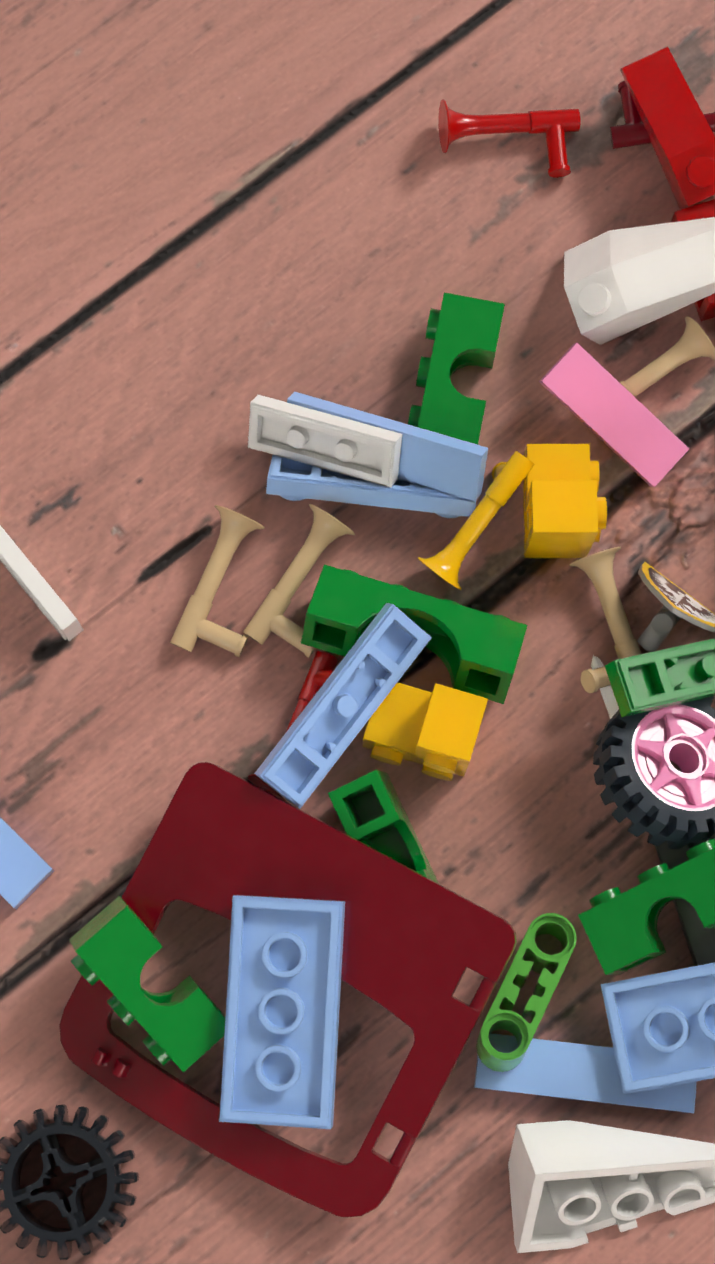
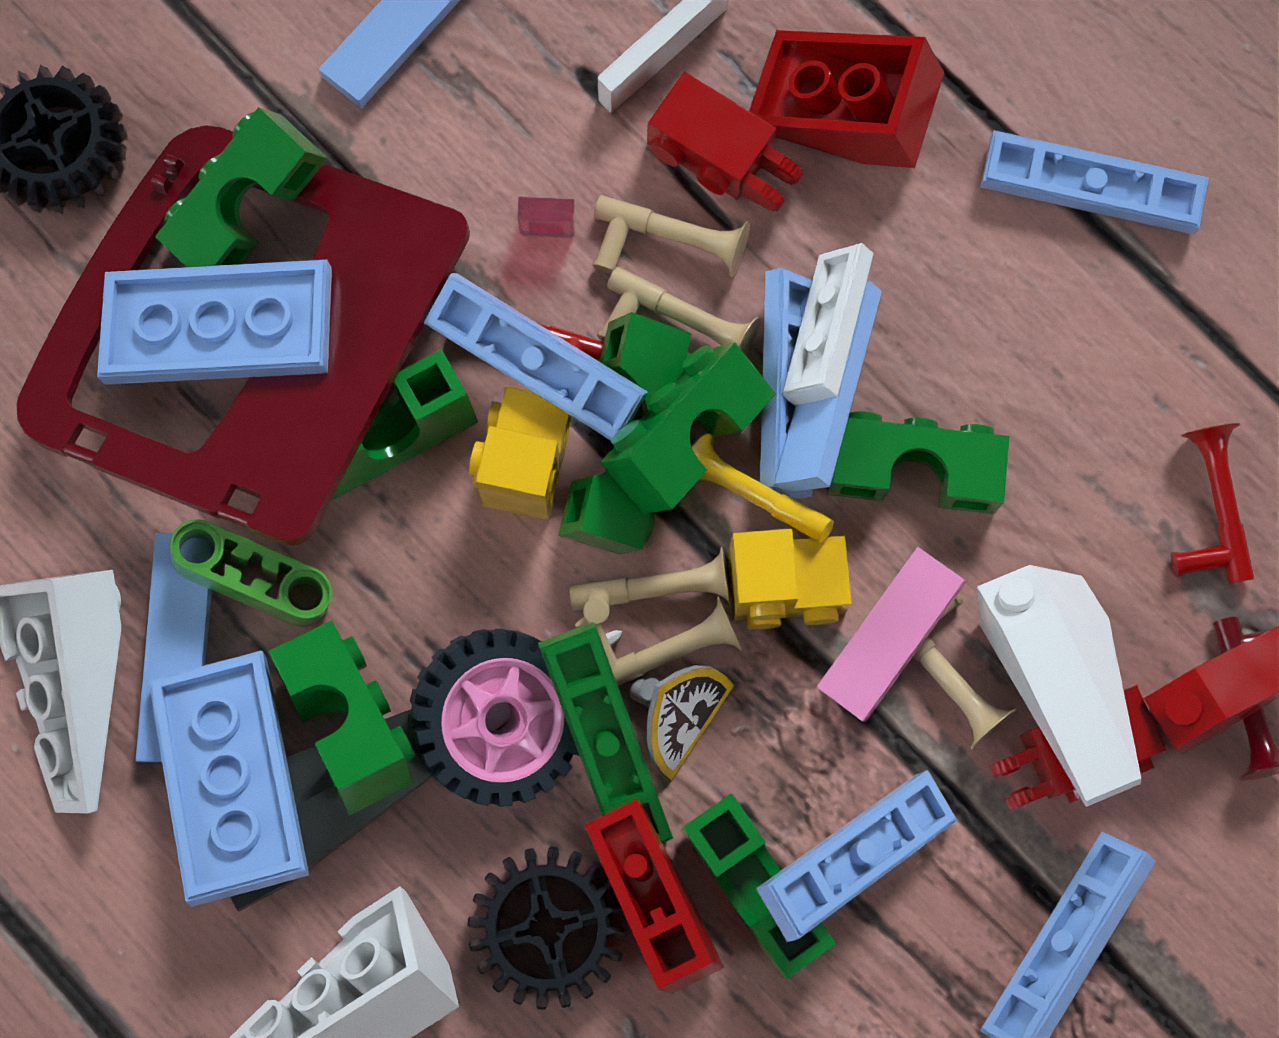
camera: 85 degrees right, 0 degrees up
(94, 407) = (850, 94): none -> red slope
(131, 527) = (719, 143): none -> red hinge
(191, 693) = (546, 217): none -> clear pink tile
(200, 198) = (1094, 182): none -> light blue plate
(446, 600) = (655, 455): none -> green arch
(559, 669) = (598, 596): none -> tan piece

